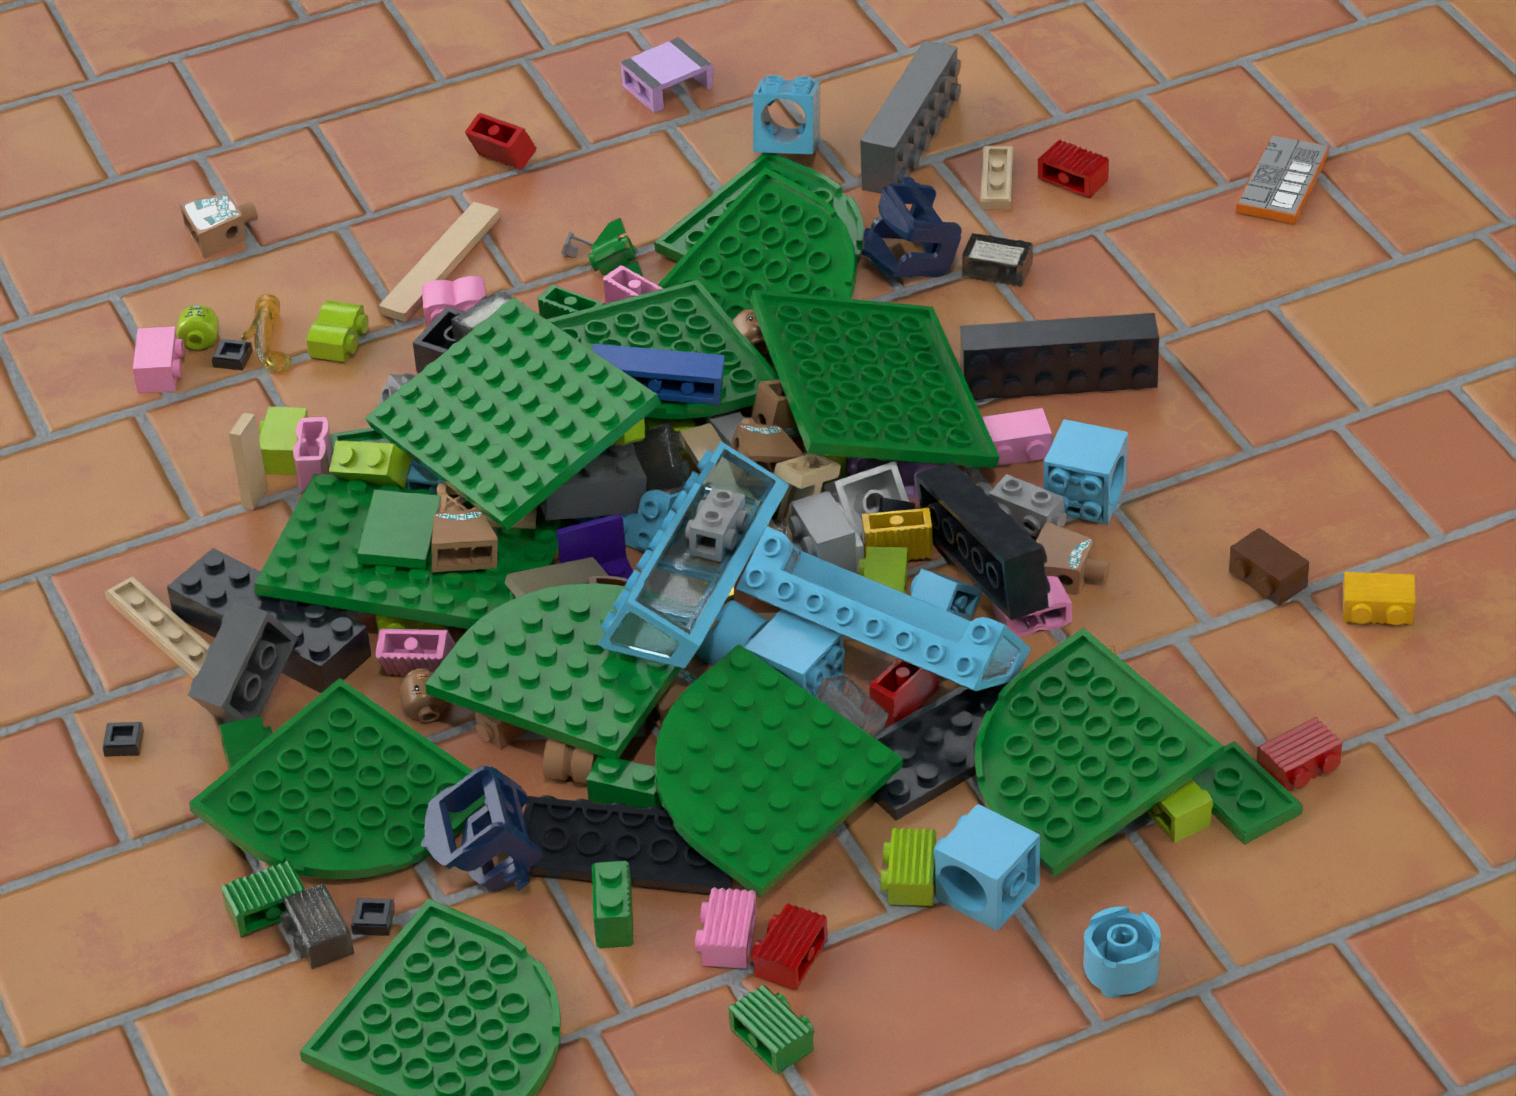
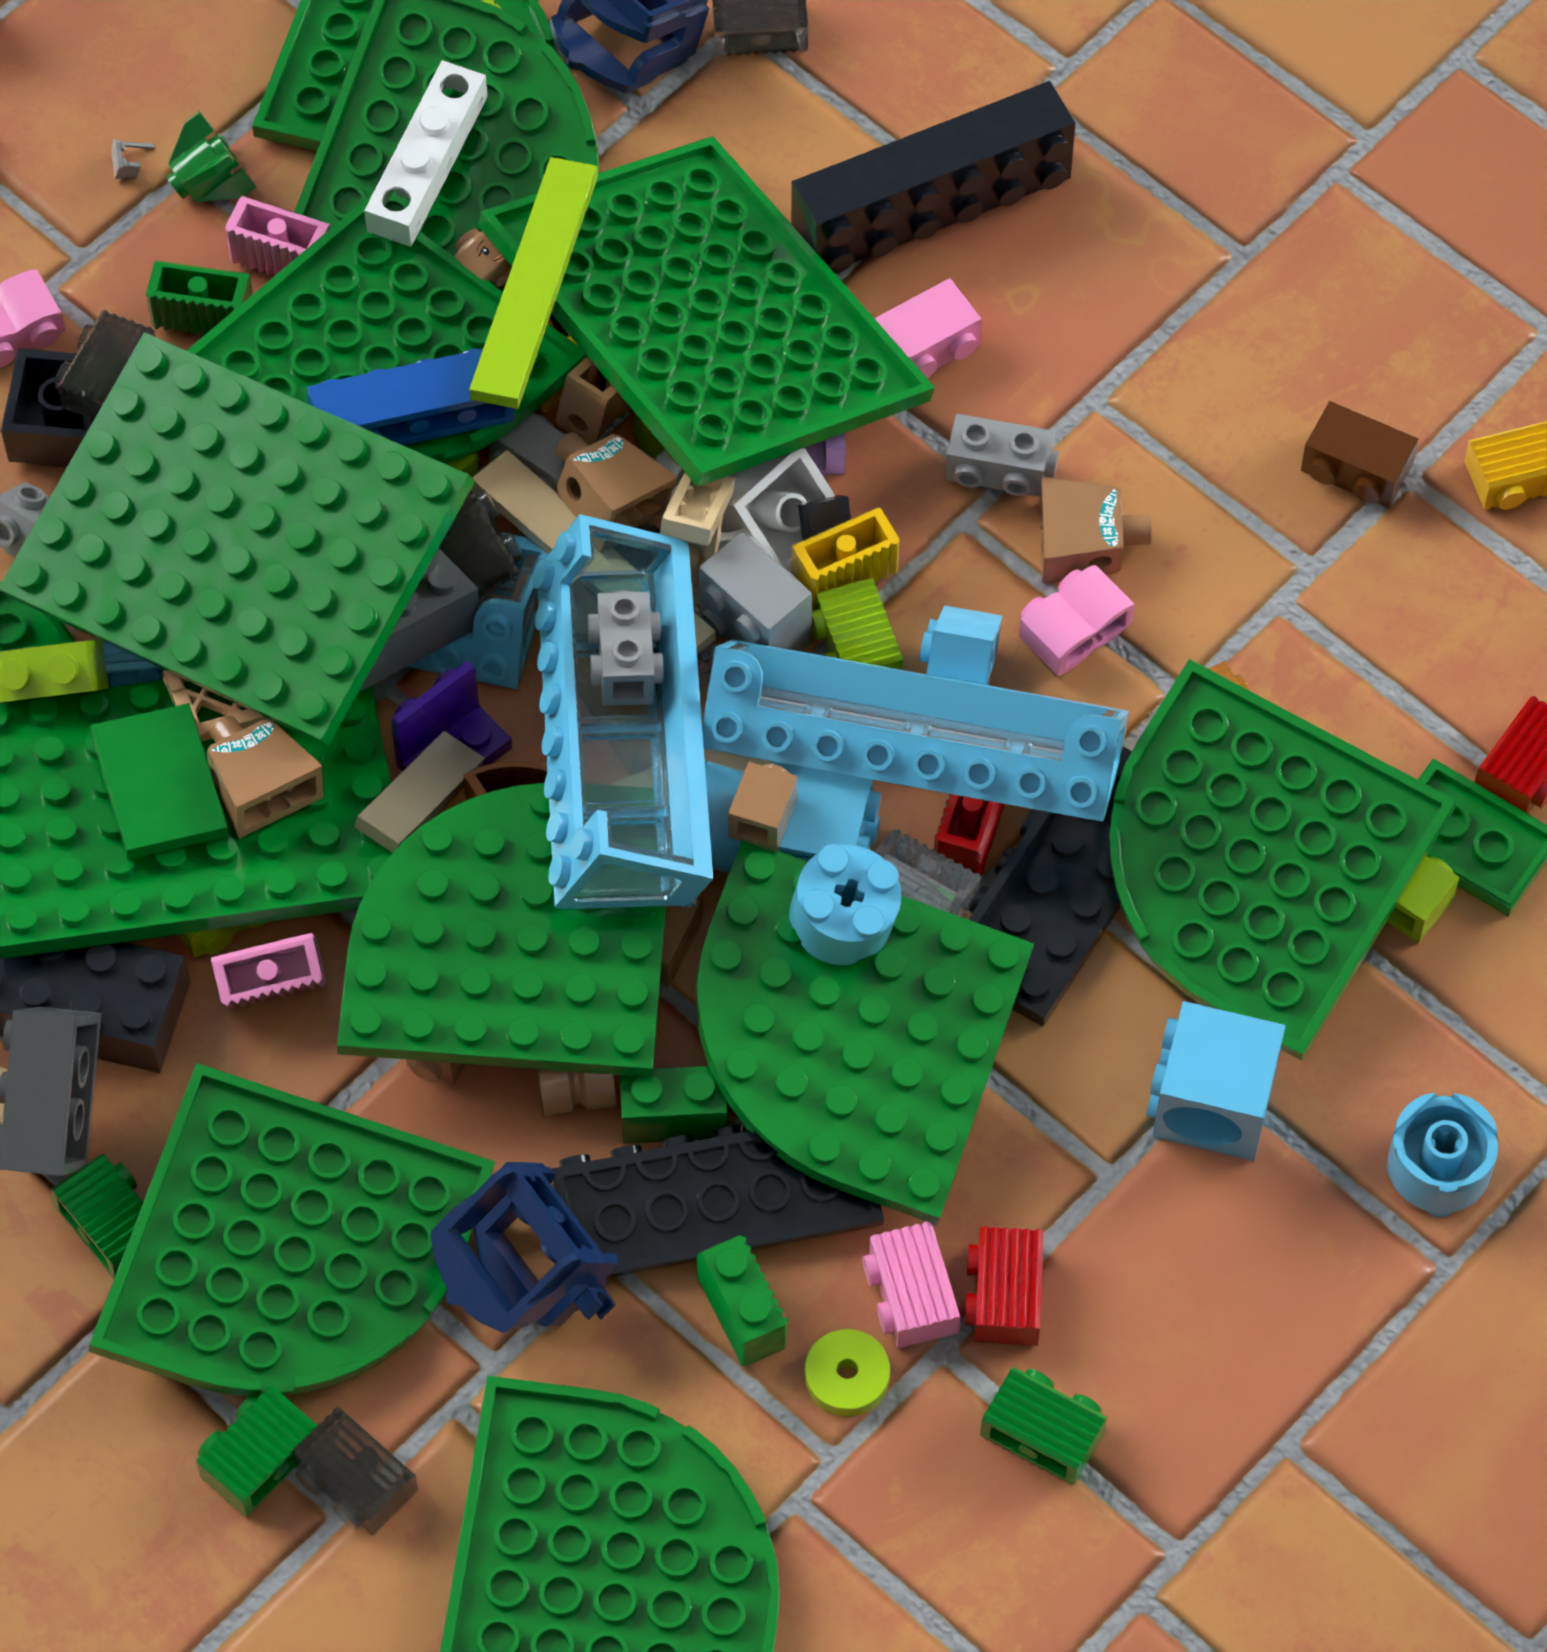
camera: 25 degrees left, 20 degrees up
(373, 916) = (416, 1423): black tile -> none
(414, 699) = (308, 1037): medium nougat head -> none
(657, 980) = (853, 1350): none -> lime piece
(731, 265) = (426, 153): none -> white piece
(757, 625) = (763, 805): none -> medium nougat brick
(761, 327) = (533, 283): none -> lime tile
(780, 687) = (850, 877): none -> medium azure brick
(910, 867) = (1108, 1105): lime brick -> none
(984, 541) = (987, 547): black brick -> none
(1087, 469) = (1059, 370): medium azure brick -> none

